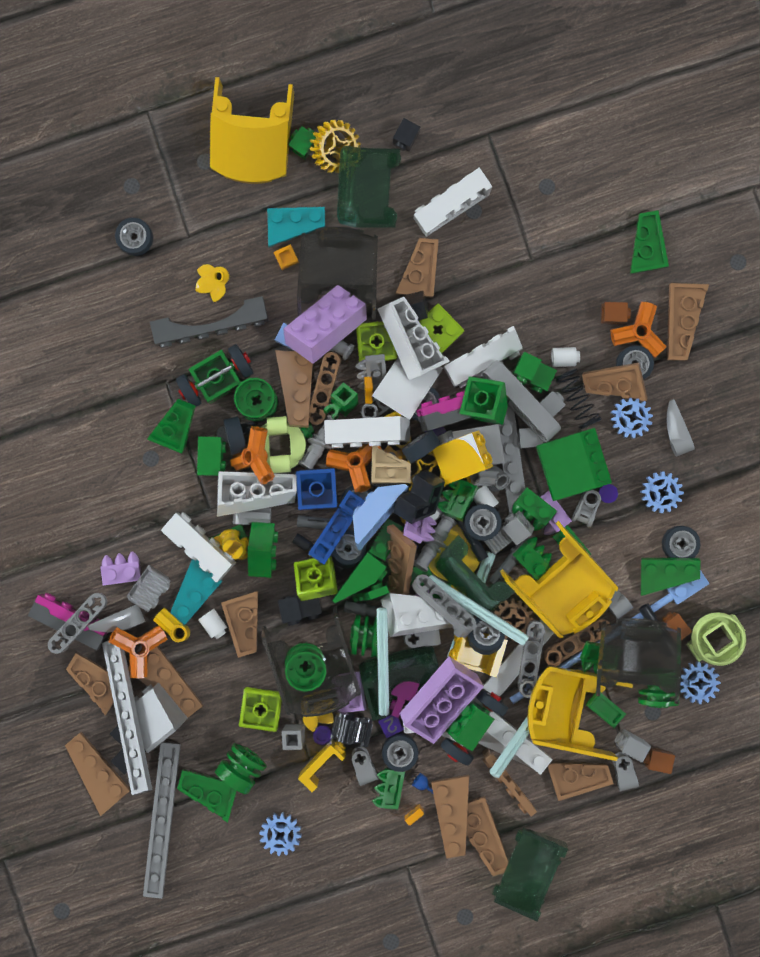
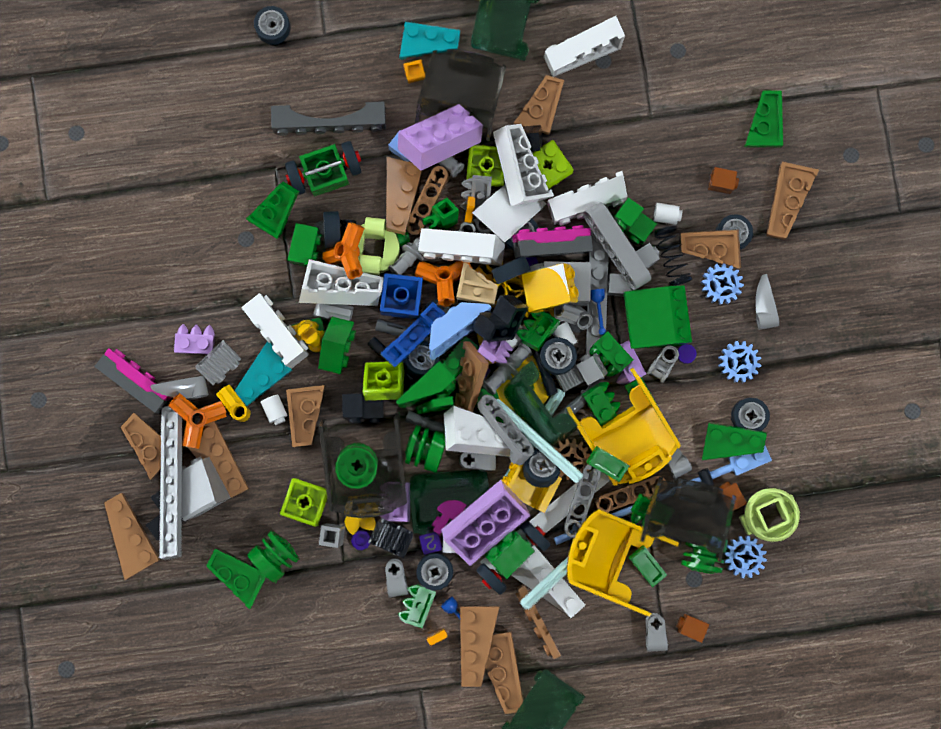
camera: 10 degrees right, 5 degrees down
(75, 621) = (142, 383): light grey beam -> none
(161, 819) = (184, 595): light grey plate -> none
(210, 283) = (336, 82): yellow plate -> none
(254, 389) = (361, 189): green wheel -> none
(284, 840) = (295, 623): light blue gear -> none
(307, 774) = (337, 575): yellow panel -> none
(383, 674) = (434, 473): light aqua axle -> none
(485, 400) = (581, 238): green slope -> none
(510, 454) = (598, 296): none -> blue hinge
(550, 619) = (607, 464): none -> green tile
(578, 778) = (607, 631): medium nougat wing -> none
(632, 745) = (667, 606): light grey brick -> none
(643, 319) = (750, 192): orange piece -> none

